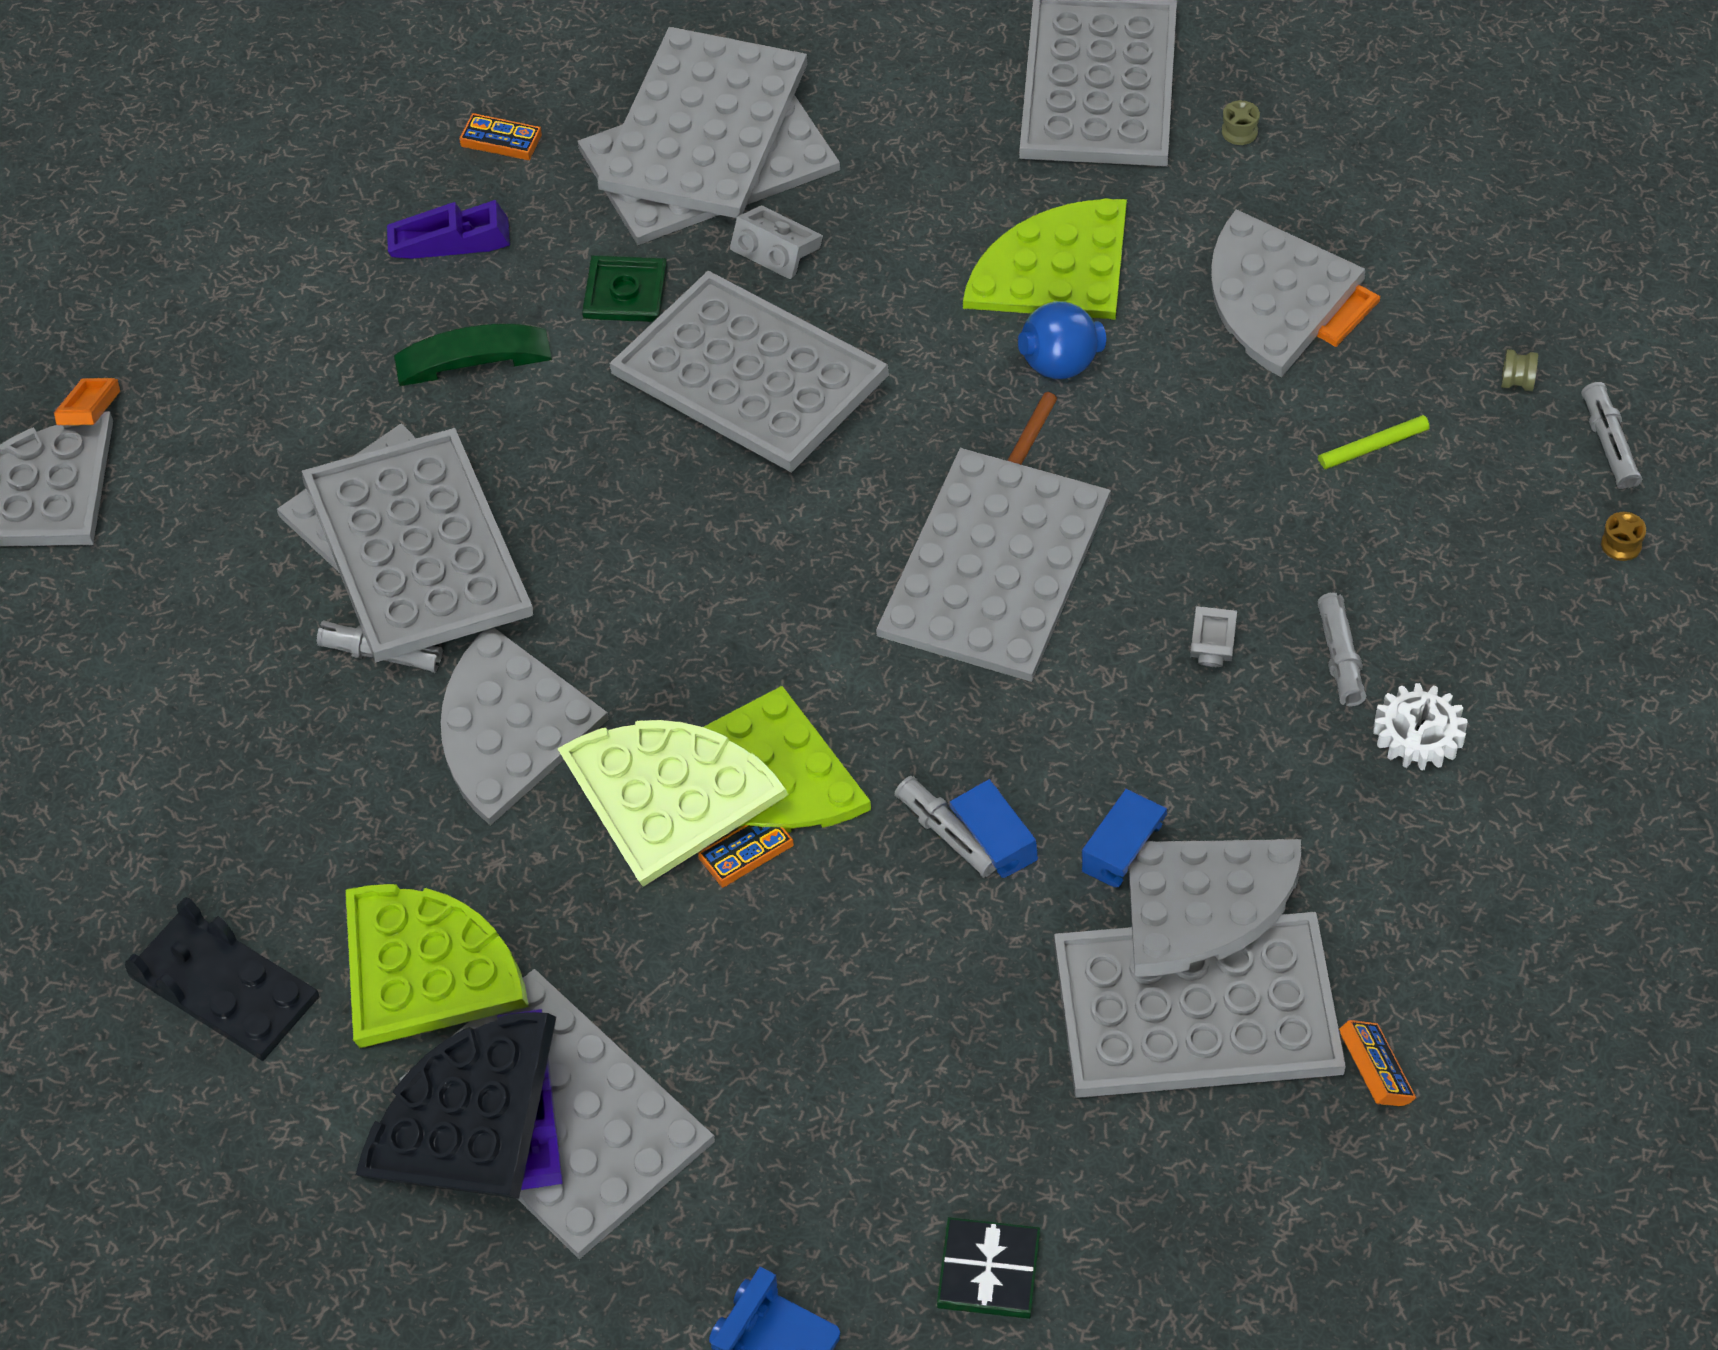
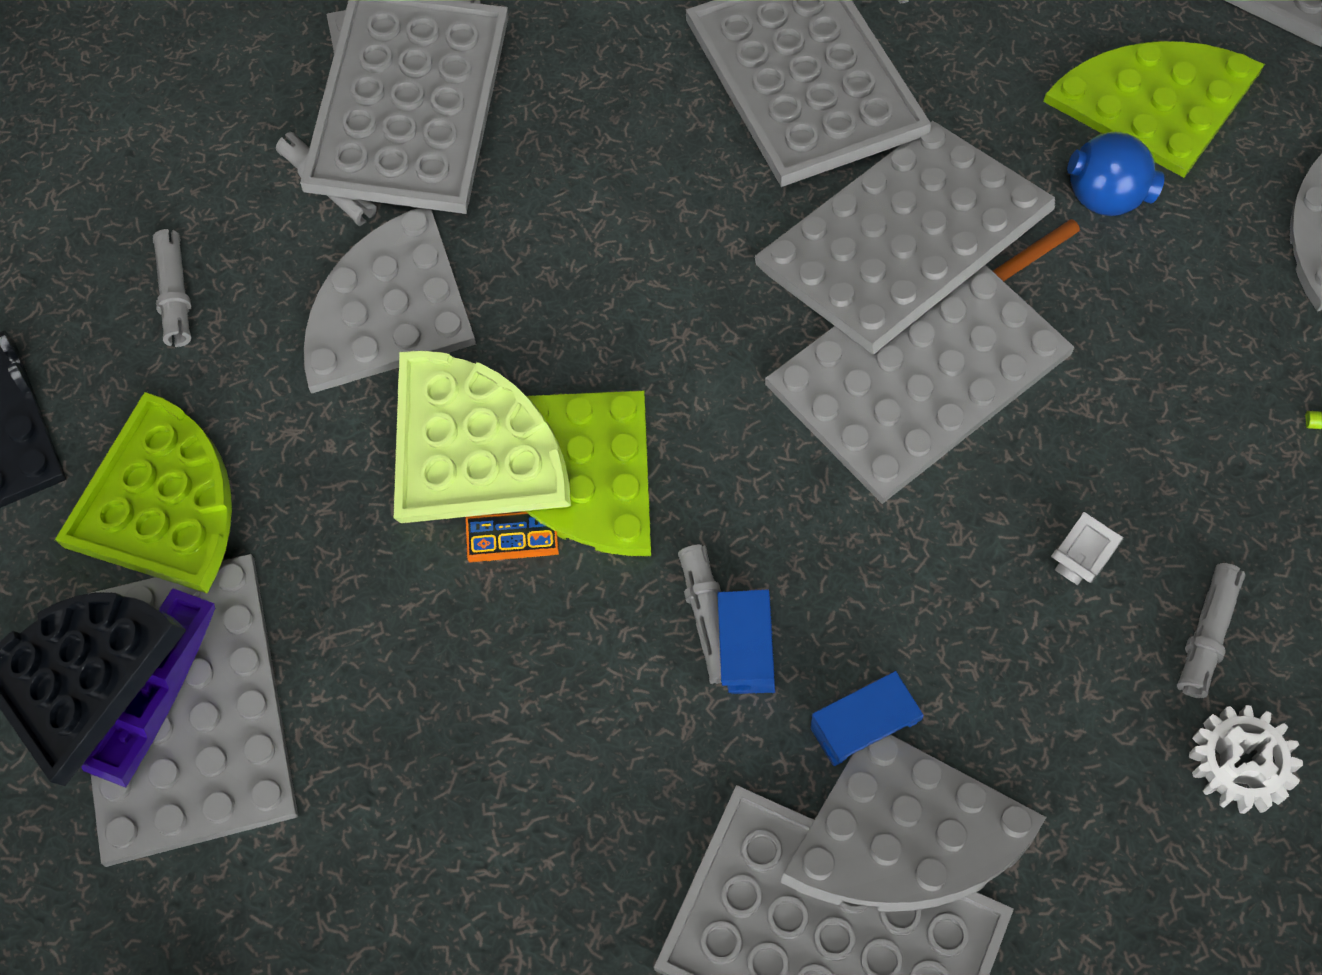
camera: 30 degrees right, 10 degrees up
(313, 808) = (172, 301): none -> light grey pin
(918, 465) = (904, 236): none -> light grey plate

